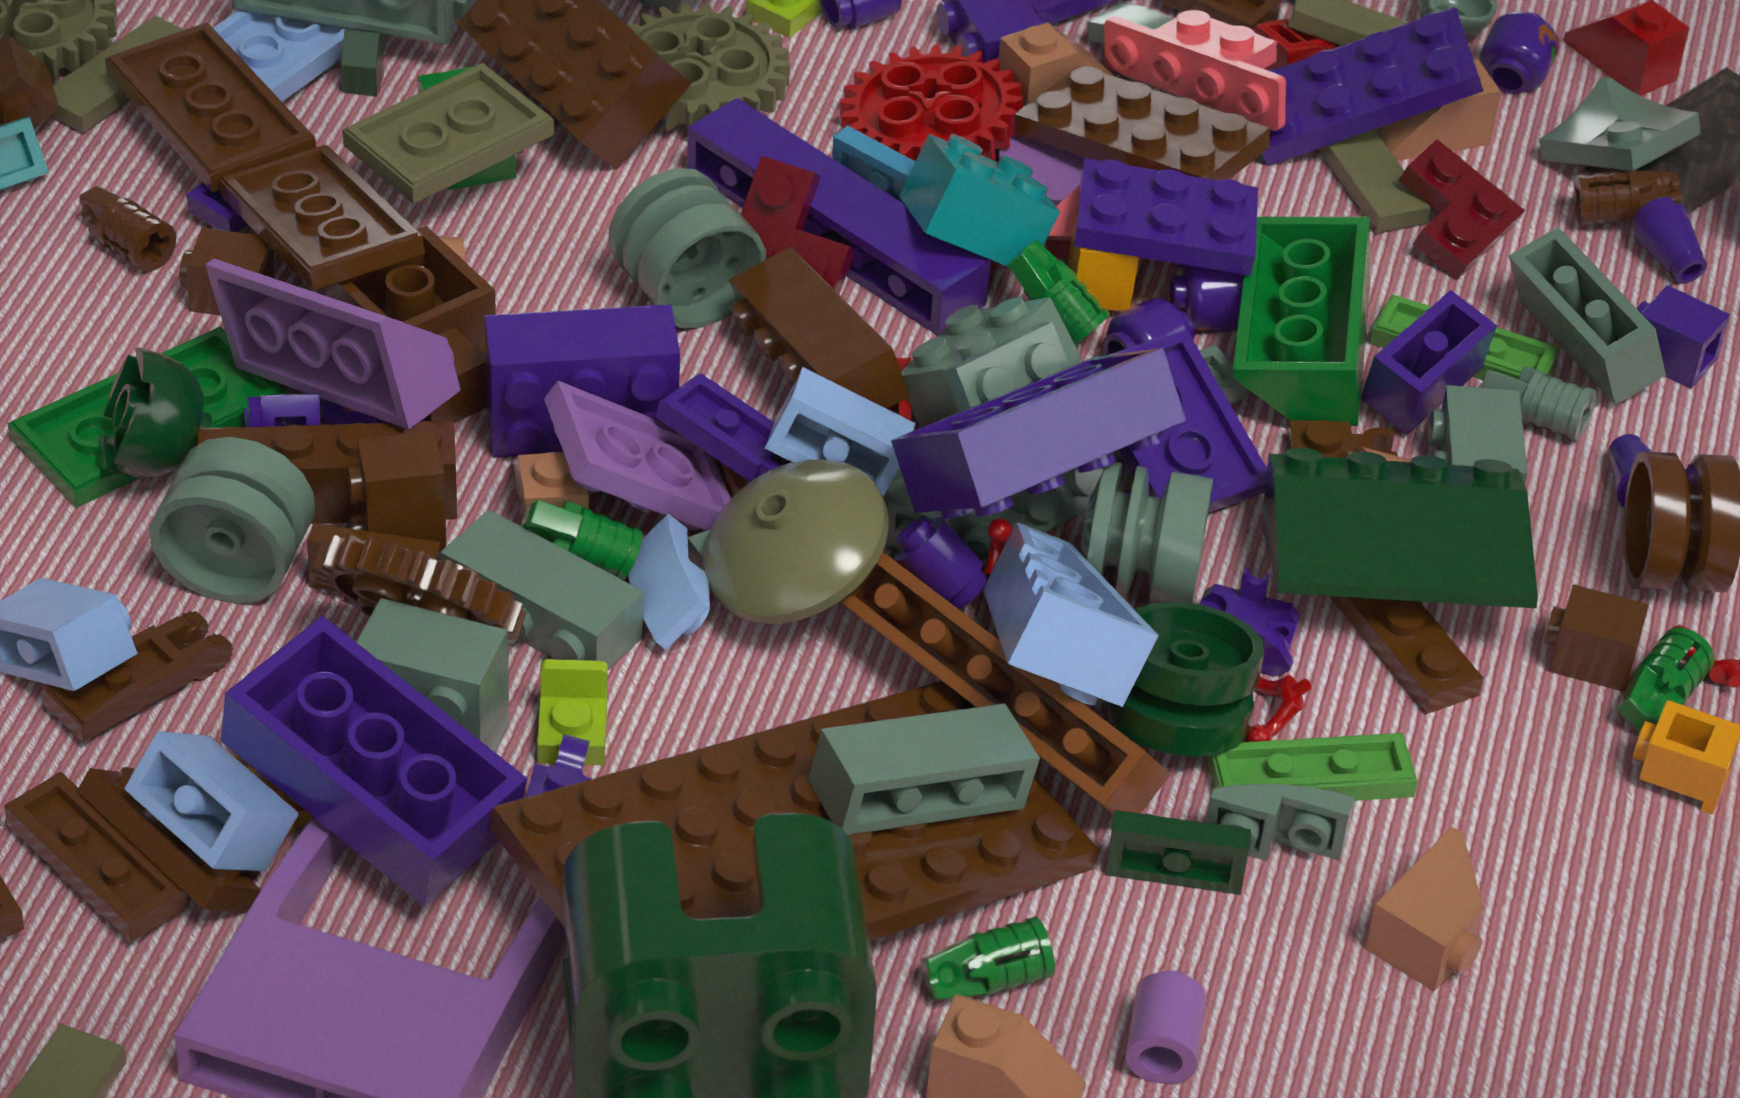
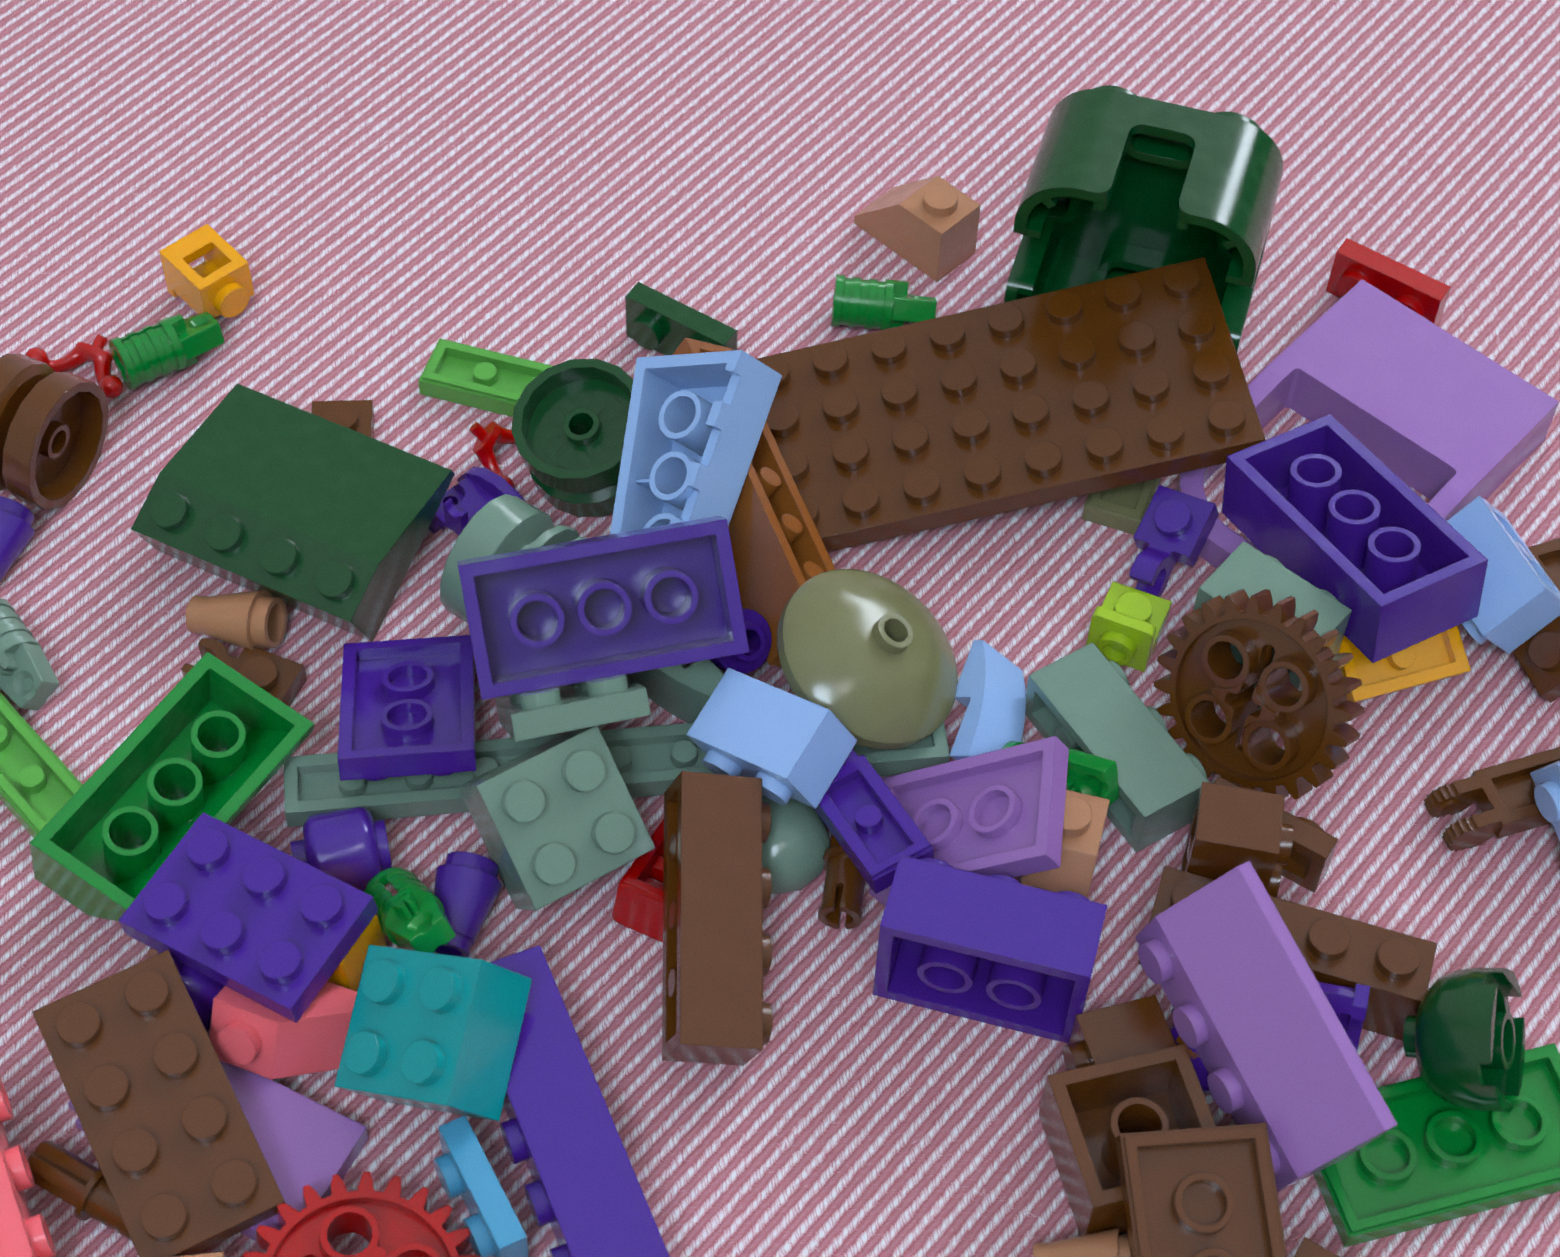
camera: 155 degrees left, 10 degrees up
(232, 520) = (1413, 872): sand green wheel -> none
(684, 245) = (791, 1104): sand green wheel -> none
(777, 212) = (659, 1119): dark red plate -> none
(923, 768) = (876, 389): sand green brick -> none
(1166, 1027) = (777, 213): medium lavender brick -> none
(1284, 814) = (576, 335): sand green slope -> none
(1430, 915) = (516, 229): nougat slope -> none
(1435, 351) = (96, 689): dark purple brick -> none
(1478, 427) = (122, 609): sand green brick -> none
(1596, 637) = (181, 390): reddish brown brick -> none

